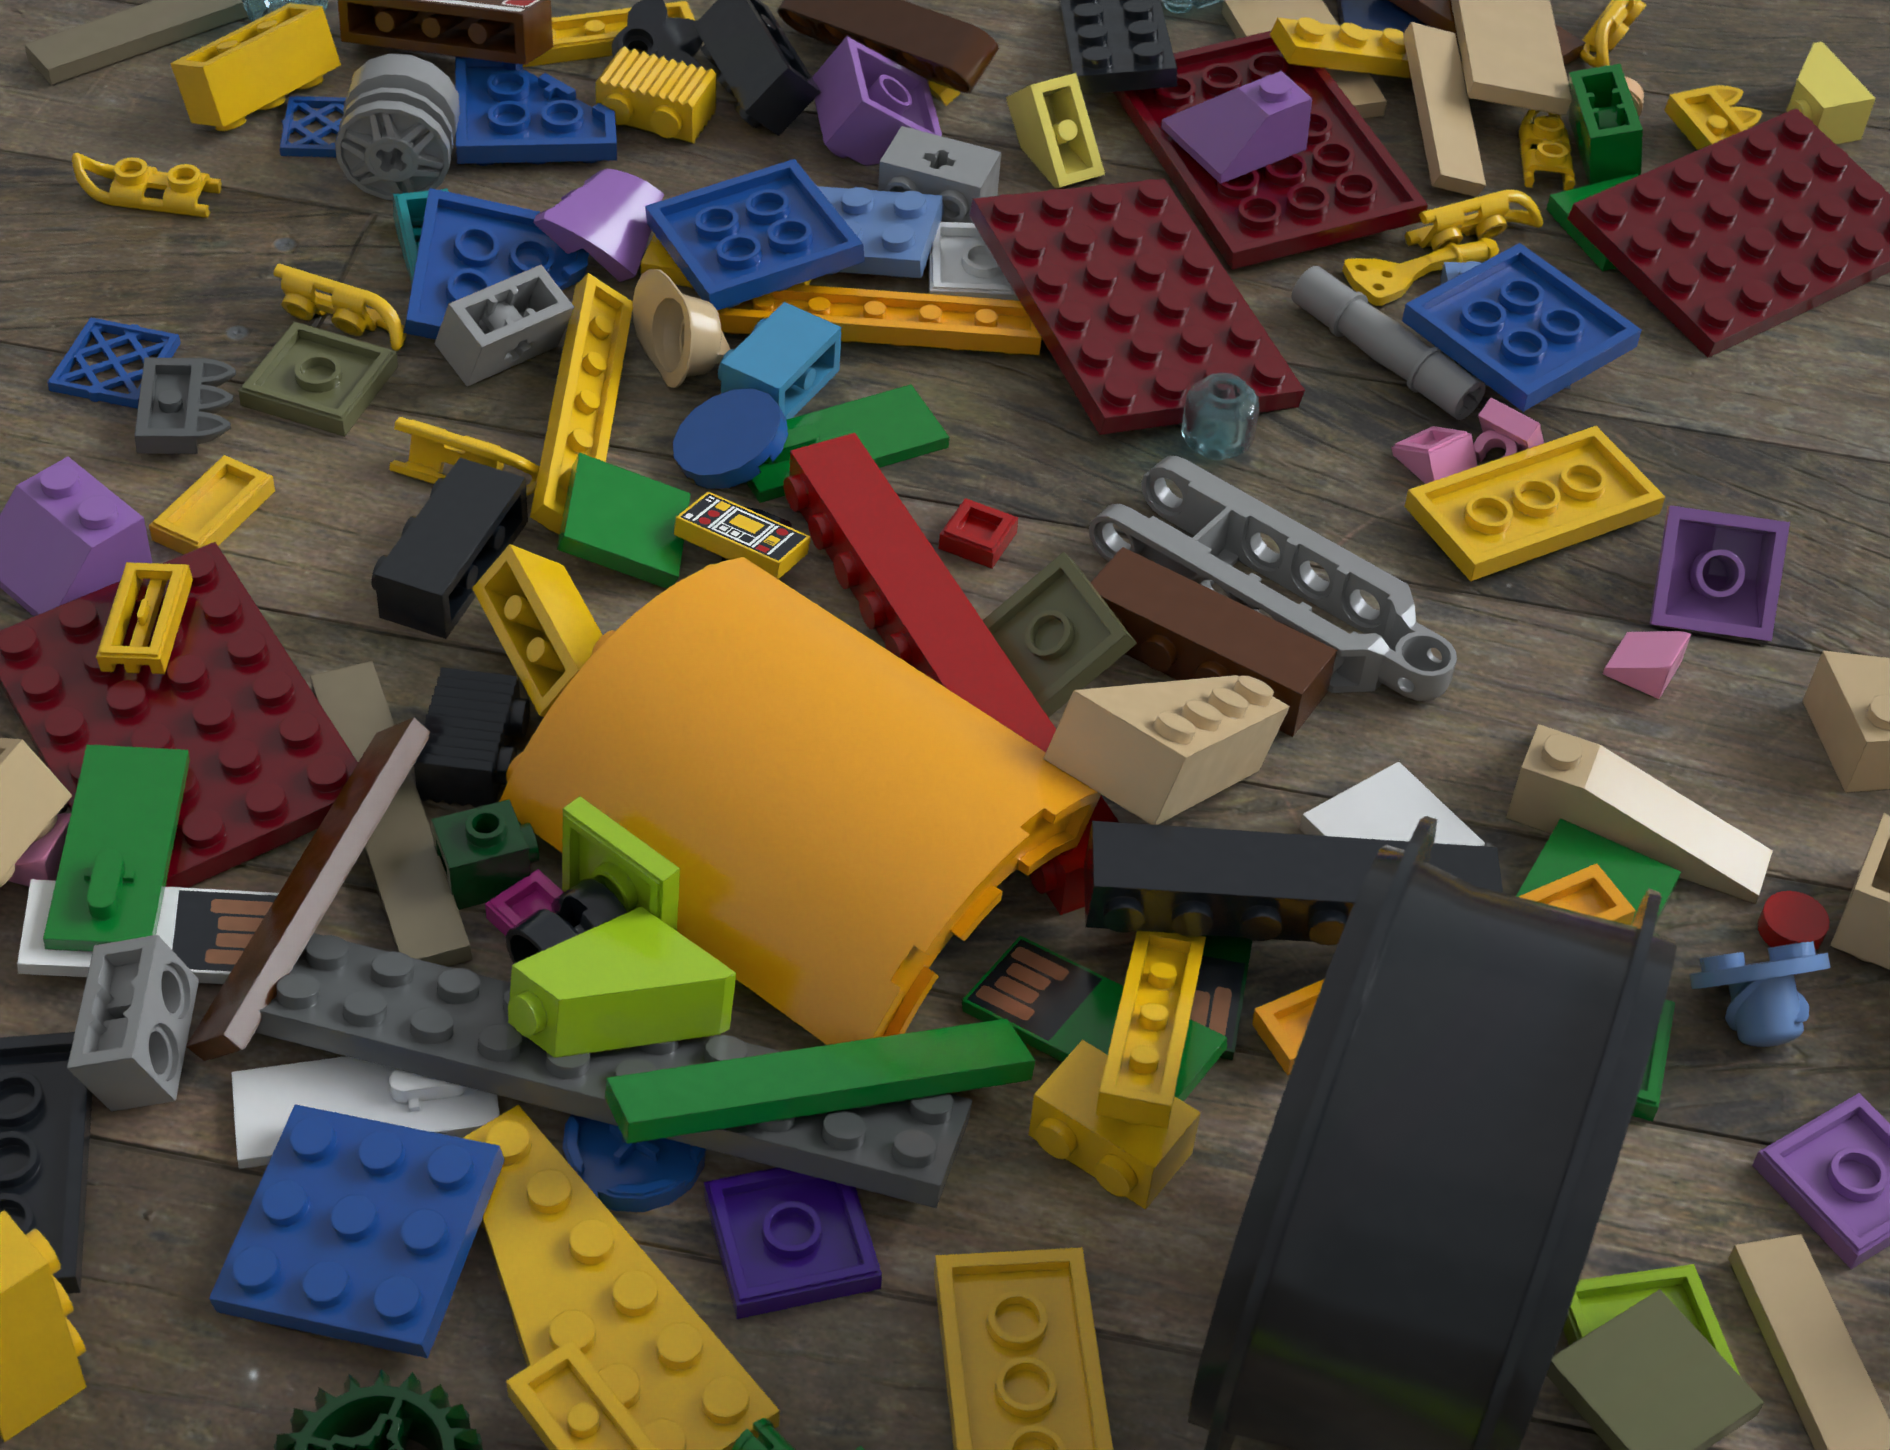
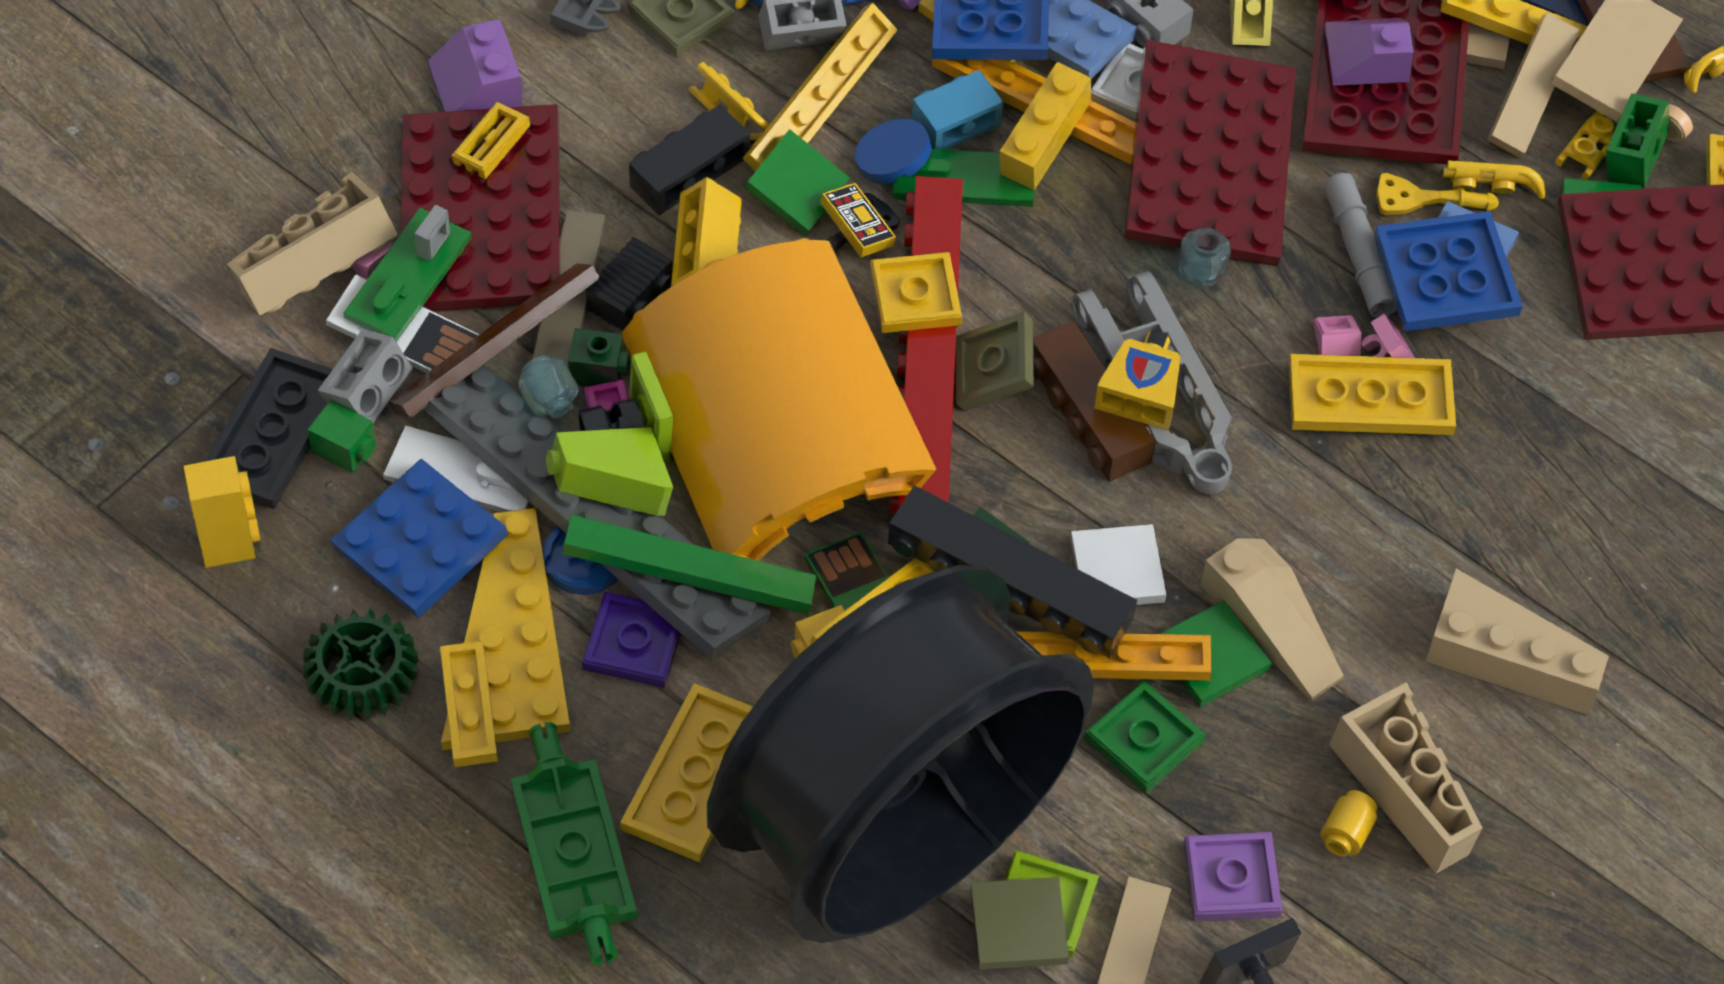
camera: 30 degrees right, 10 degrees up
(134, 766) = (432, 233): none -> light grey tile
(140, 1128) = (342, 436): none -> green brick
(212, 506) = (574, 77): yellow tile -> none
(439, 917) = (548, 386): none -> clear light blue head
(675, 329) = (909, 64): tan piece -> none
(895, 586) = (915, 292): none -> yellow tile
(918, 335) = (1045, 126): none -> yellow brick
(978, 533) = (1008, 273): red tile -> none
(1166, 741) = (1001, 457): tan wedge -> none
(1282, 579) = (1141, 381): none -> yellow torso
(1648, 660) = (1362, 527): bright pink slope -> none
(1719, 573) = (1448, 490): medium lavender slope -> none
(1763, 994) = (1255, 748): medium blue plate -> none
(1793, 919) = (1317, 722): red tile -> none

